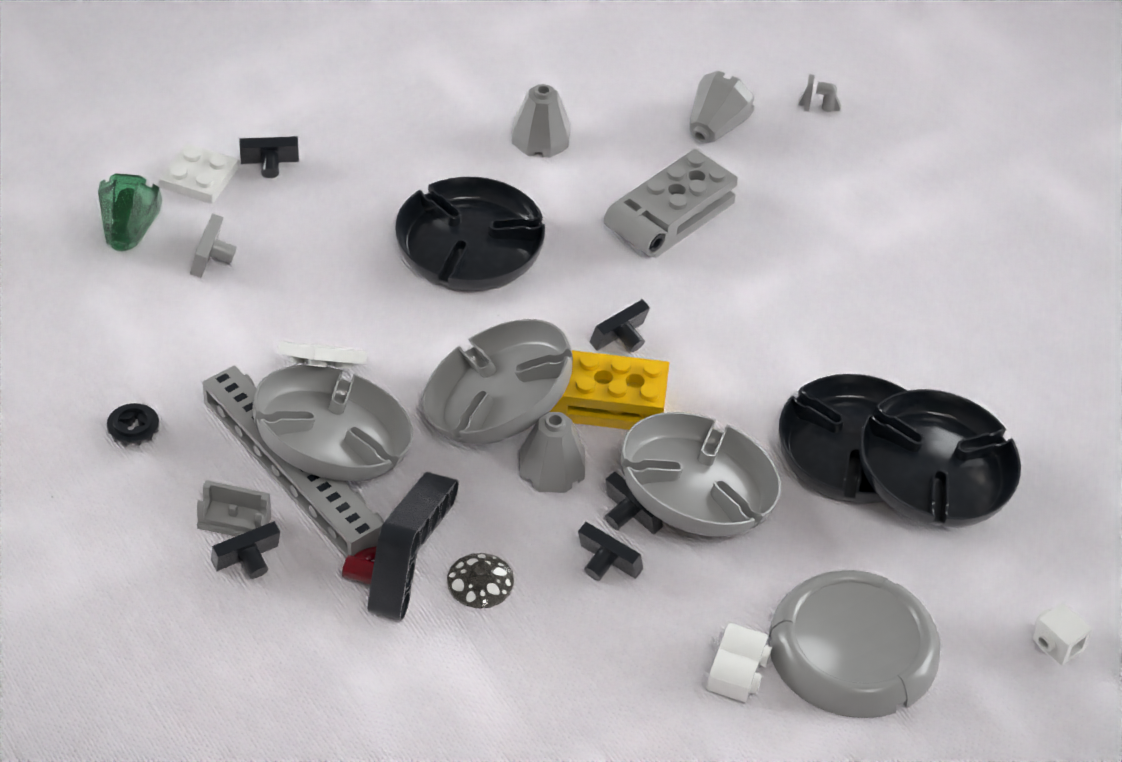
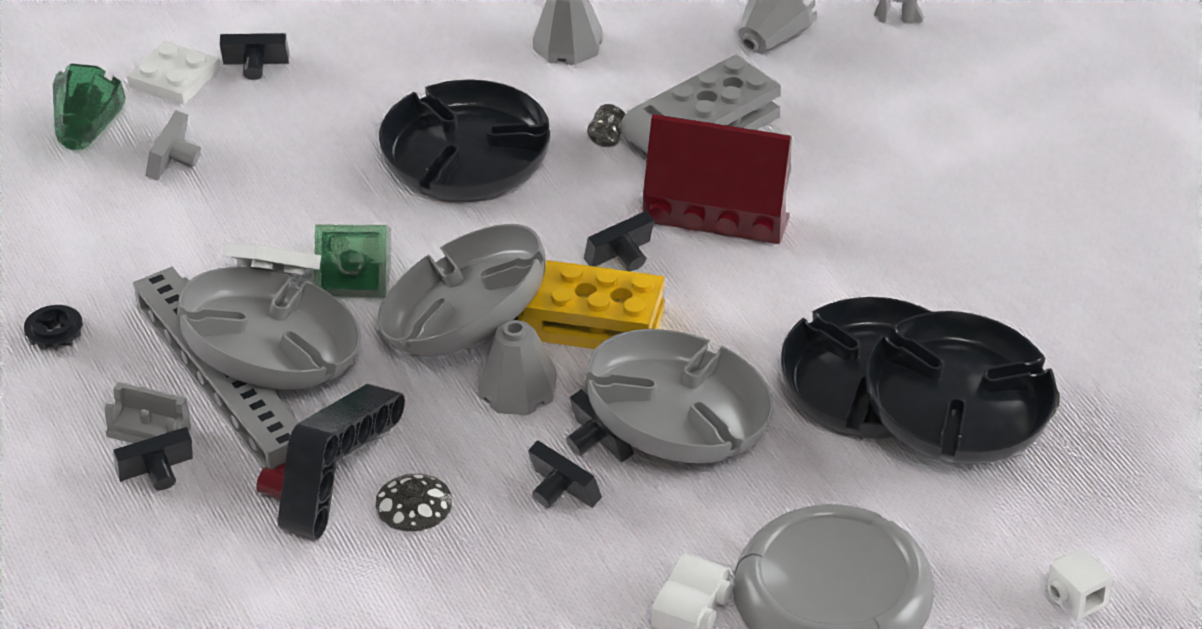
camera: 10 degrees right, 5 degrees down
(392, 352) = (353, 259): none -> clear green slope
(591, 216) = (605, 126): none -> clear smoke wheel
(700, 268) = (717, 178): none -> dark red piece

